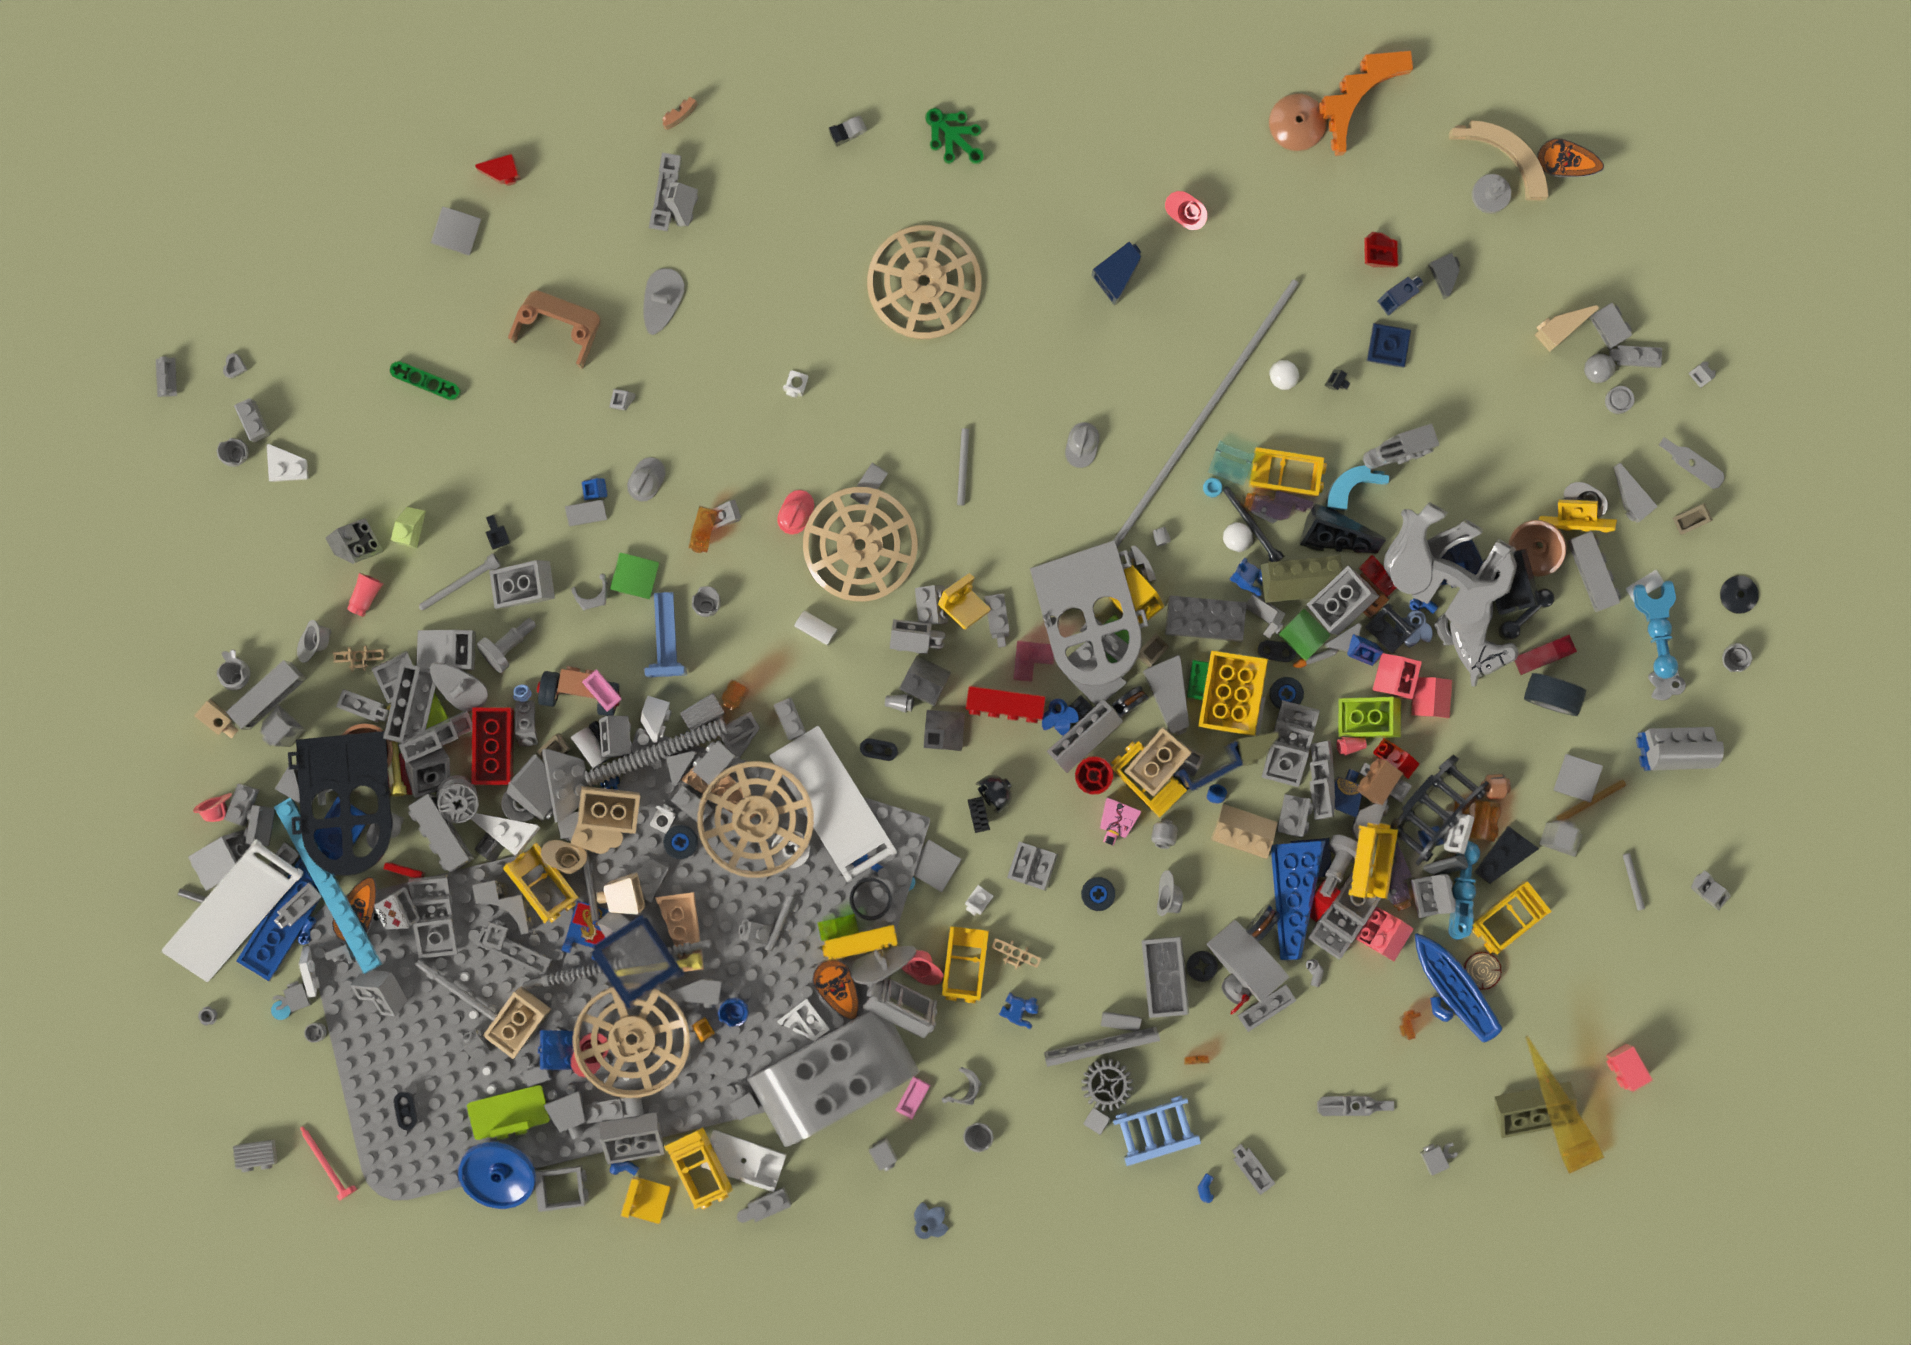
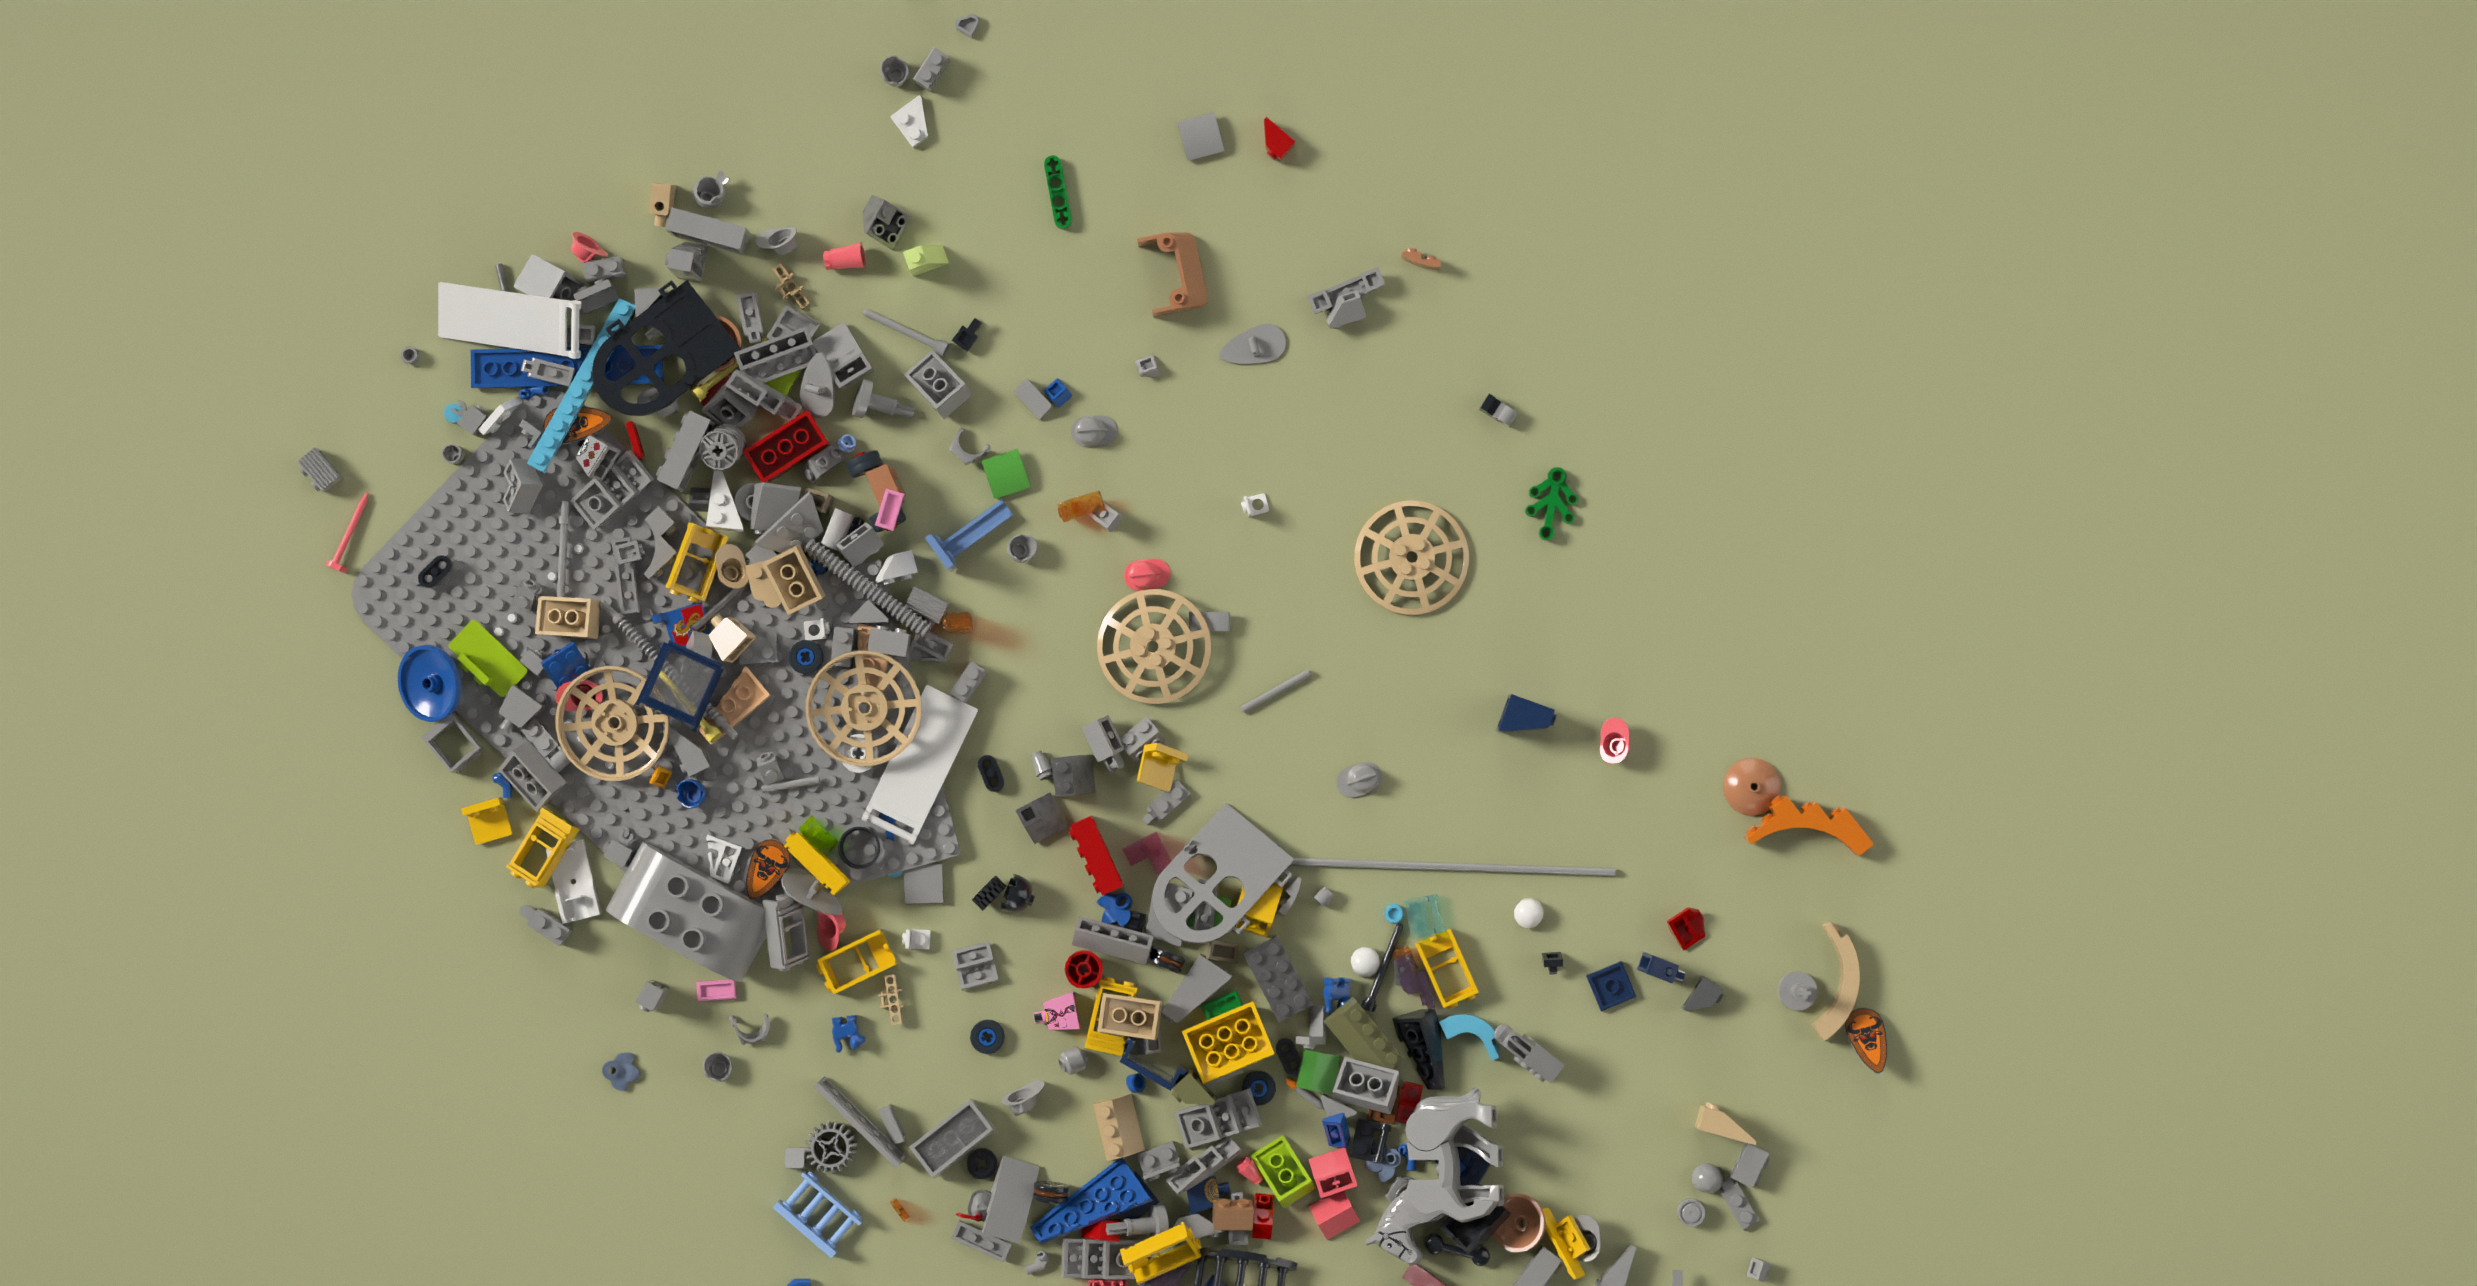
camera: 55 degrees right, 0 degrees up
(815, 627) = (1059, 654): white brick -> none

